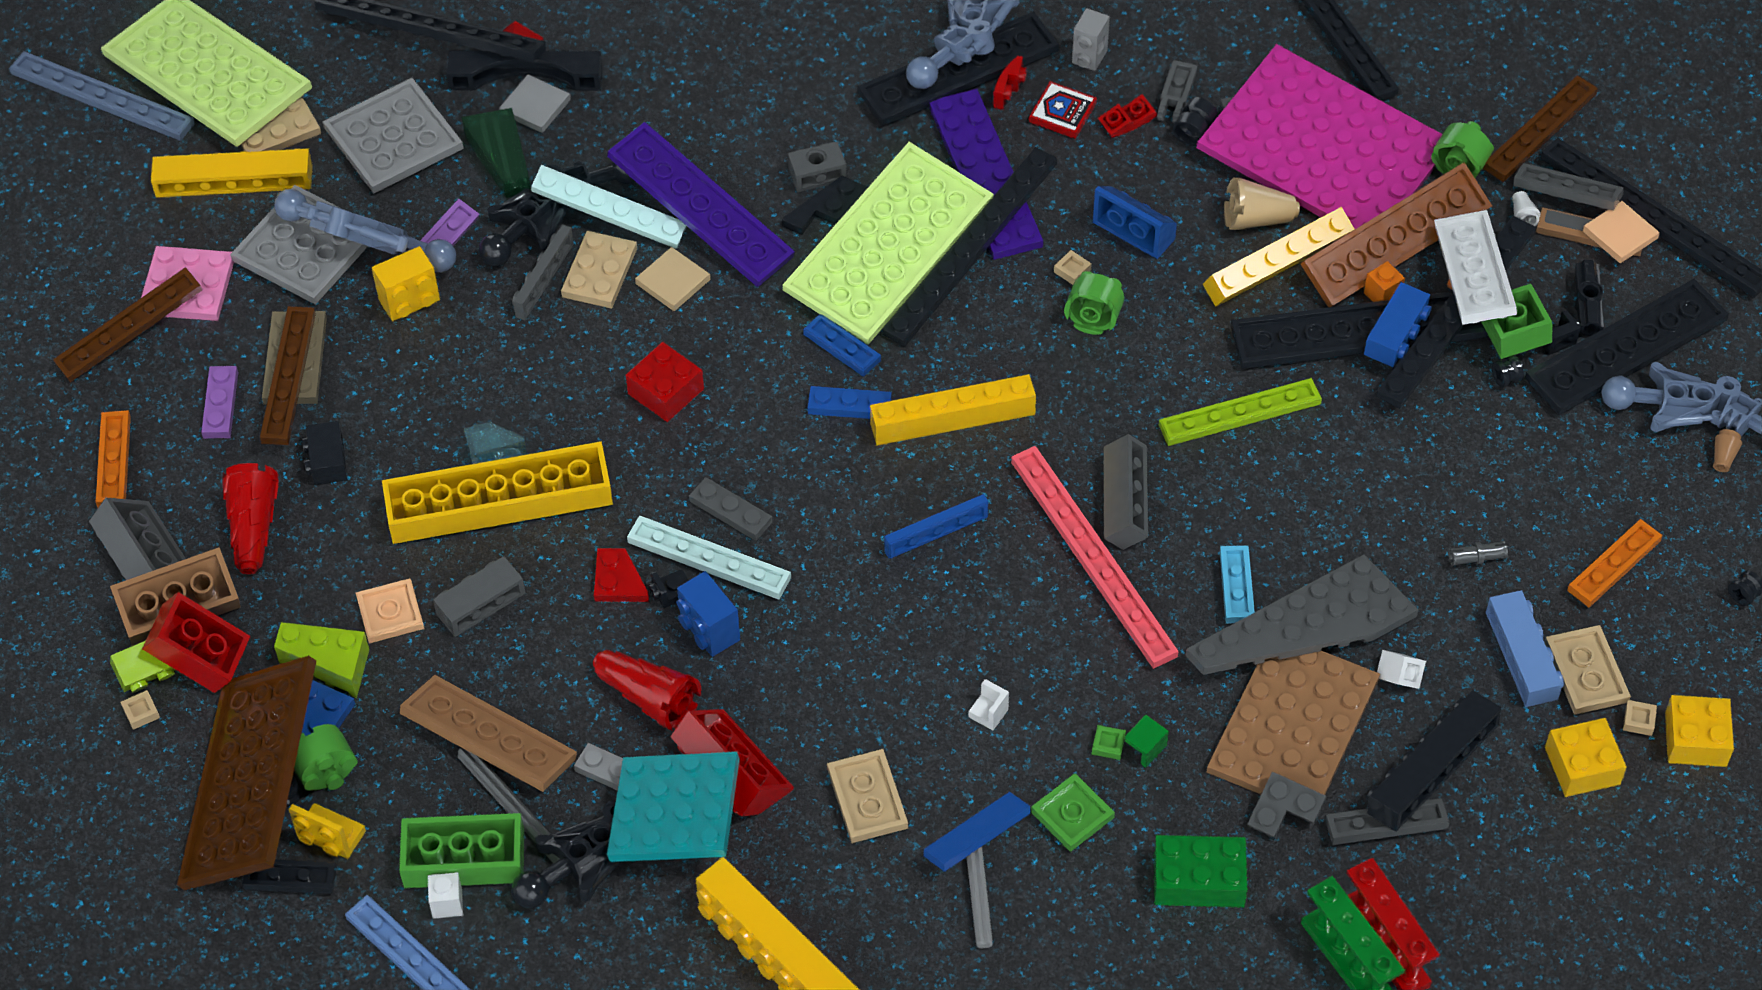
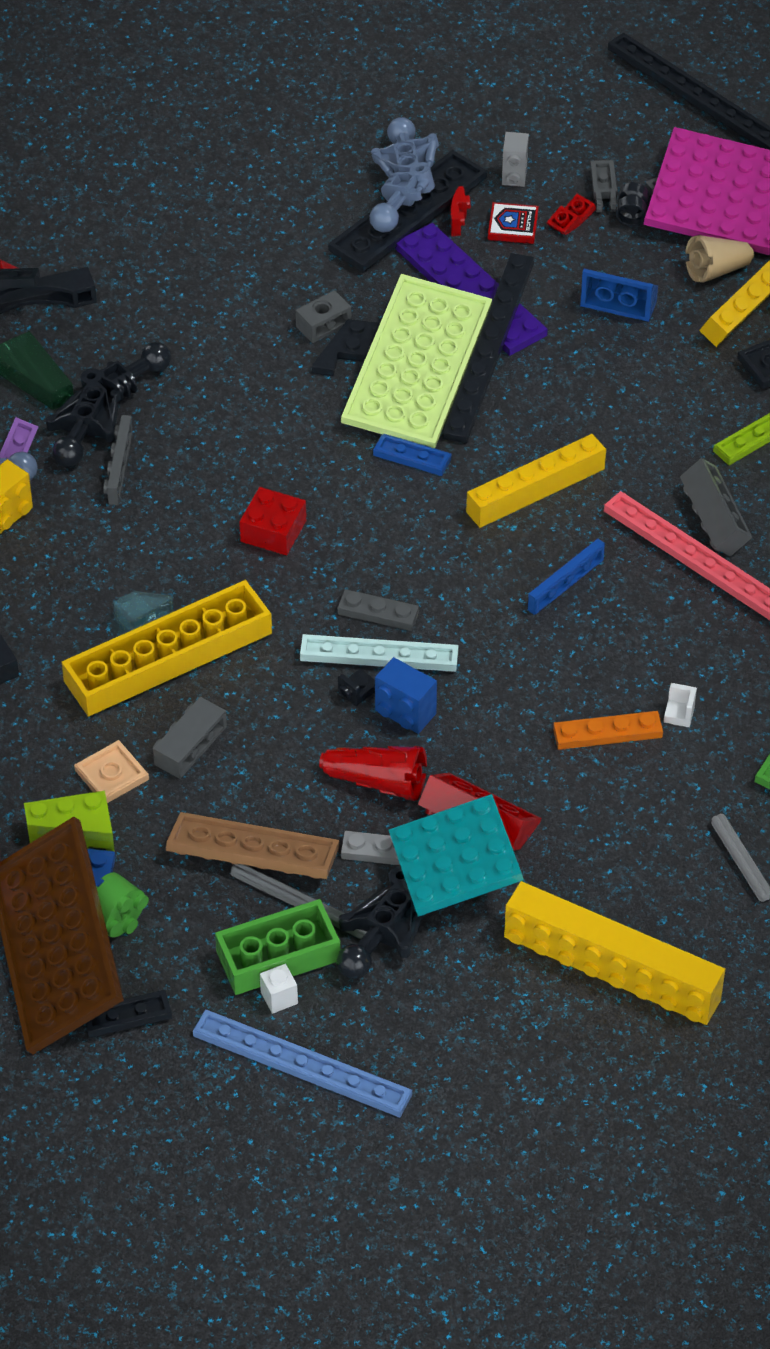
camera: 20 degrees left, 5 degrees down
(326, 829) = (144, 965): yellow bracket -> none
(536, 103) = (46, 324): light grey tile -> none
(599, 269) = (167, 446): tan plate -> none
(608, 206) = (156, 391): light aqua plate -> none
(617, 578) = (305, 691): red wing -> none
(672, 279) = (237, 438): tan tile -> none
(701, 204) = (238, 368): dark purple plate -> none
(844, 402) = (437, 499): blue plate -> none
(867, 796) = (610, 806): tan plate -> none
(905, 709) = (608, 730): none -> orange plate
(976, 831) = (719, 807): blue tile -> none
(1071, 267) = (583, 344): tan plate -> none
(1094, 303) = (618, 365): bright green brick -> none

